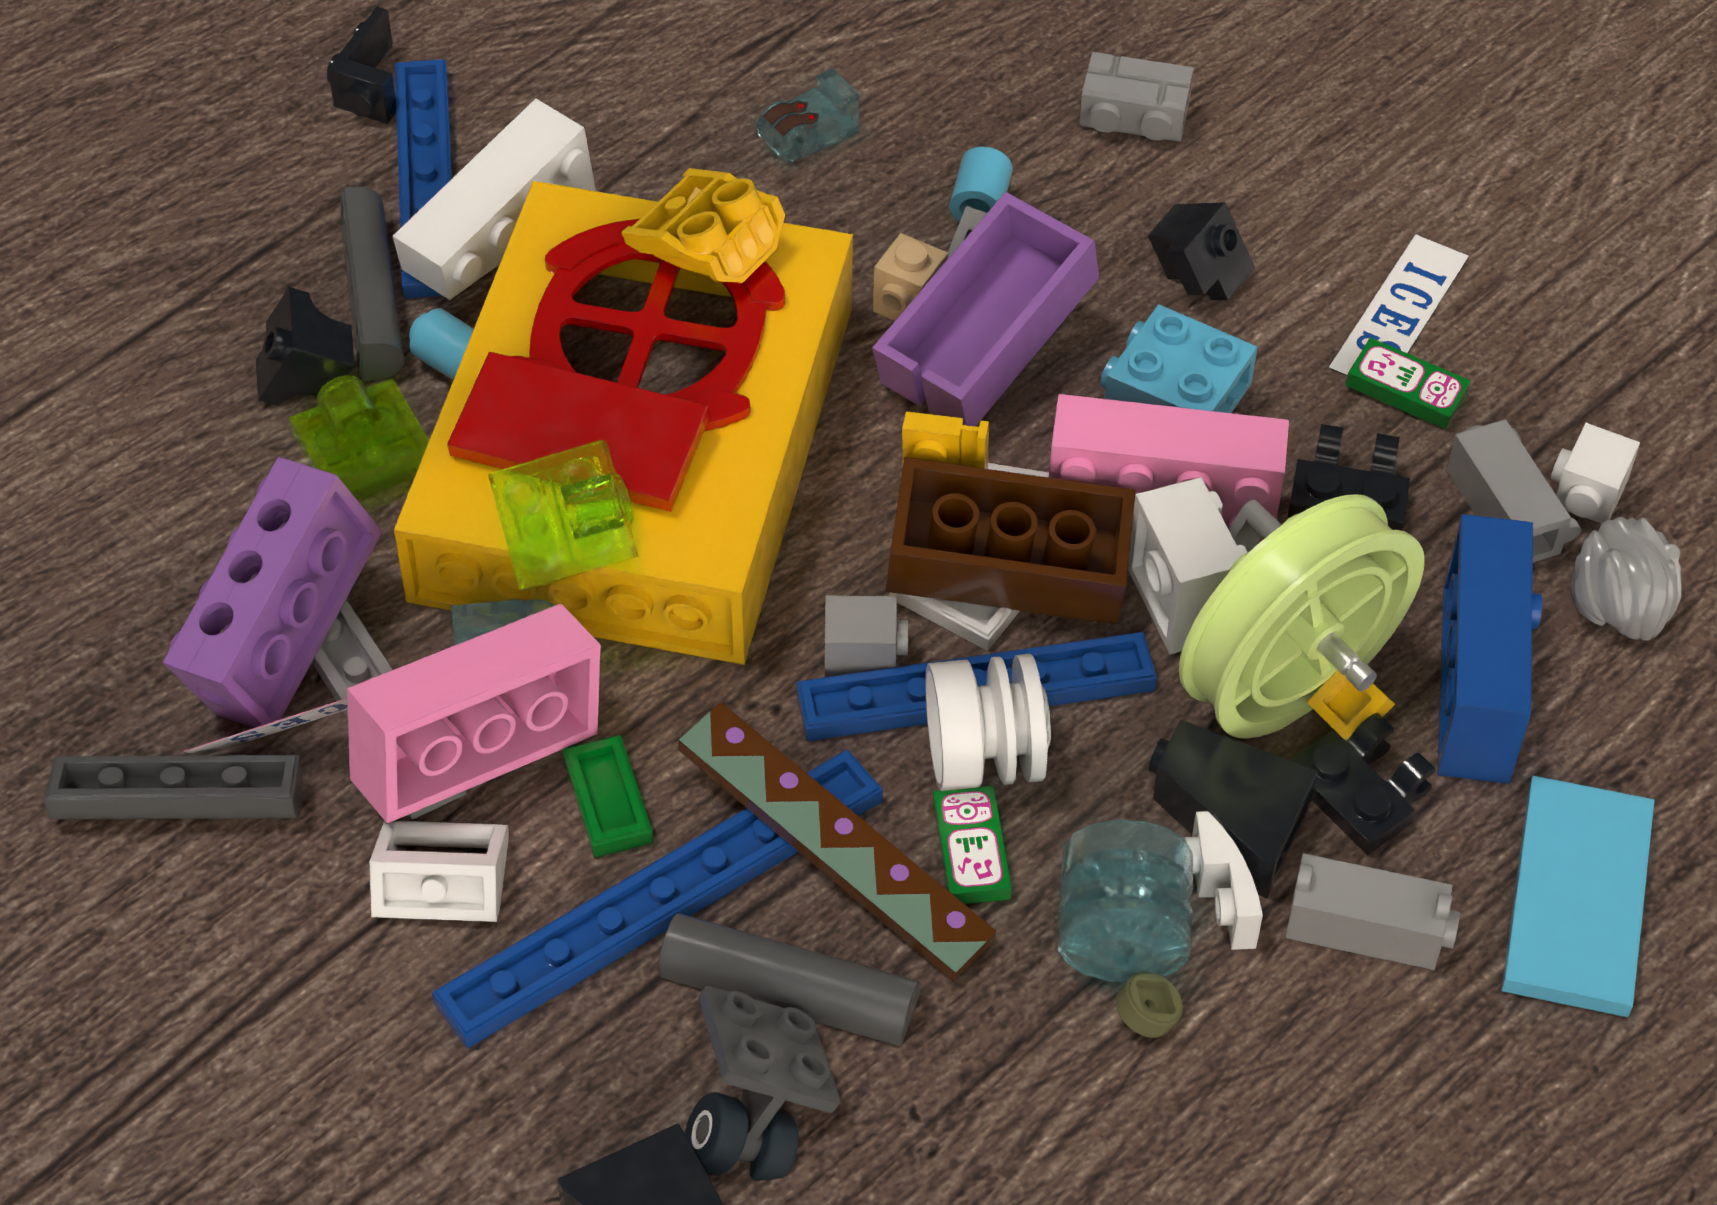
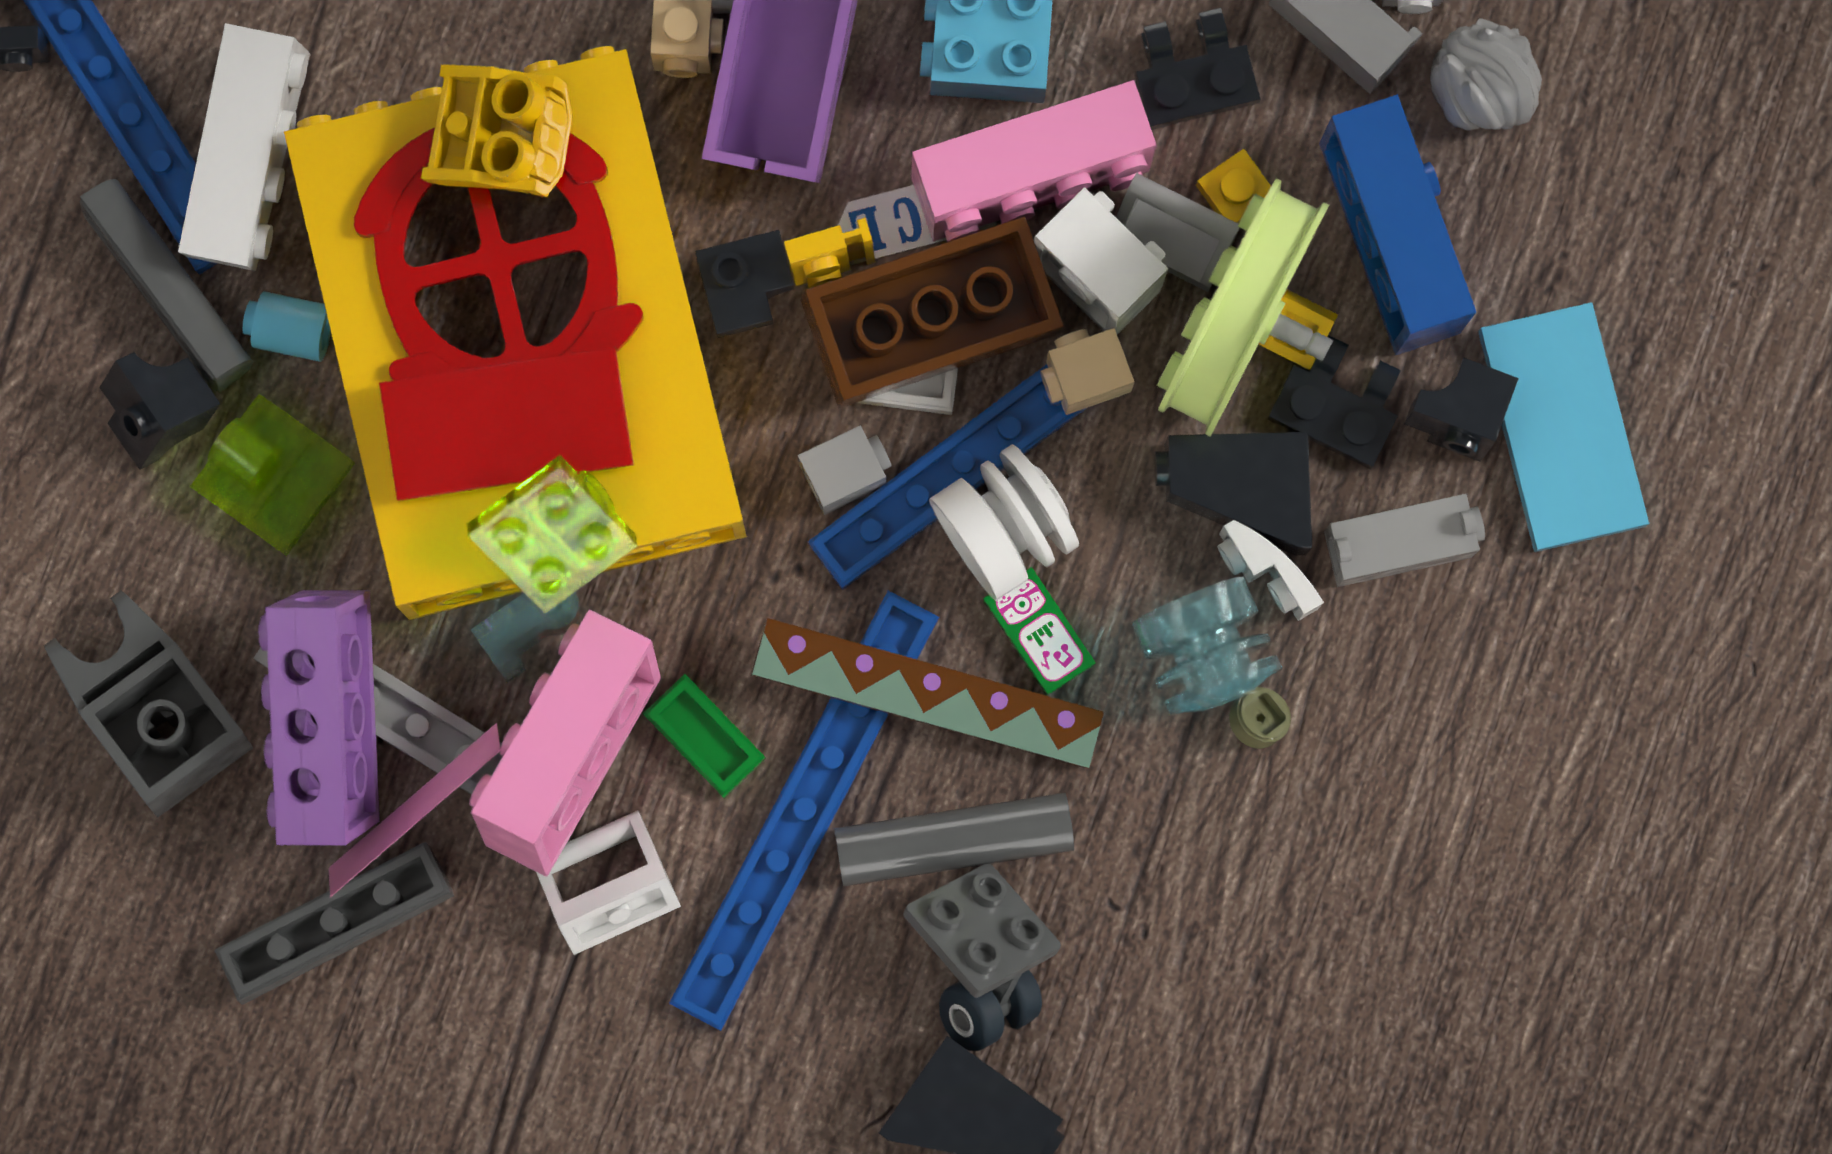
camera: 30 degrees left, 30 degrees up
(135, 557) = (139, 691): none -> dark grey brick
(854, 457) = (742, 279): none -> black brick
(1129, 637) = (1086, 370): none -> tan brick
(1482, 820) = (1467, 411): none -> black brick

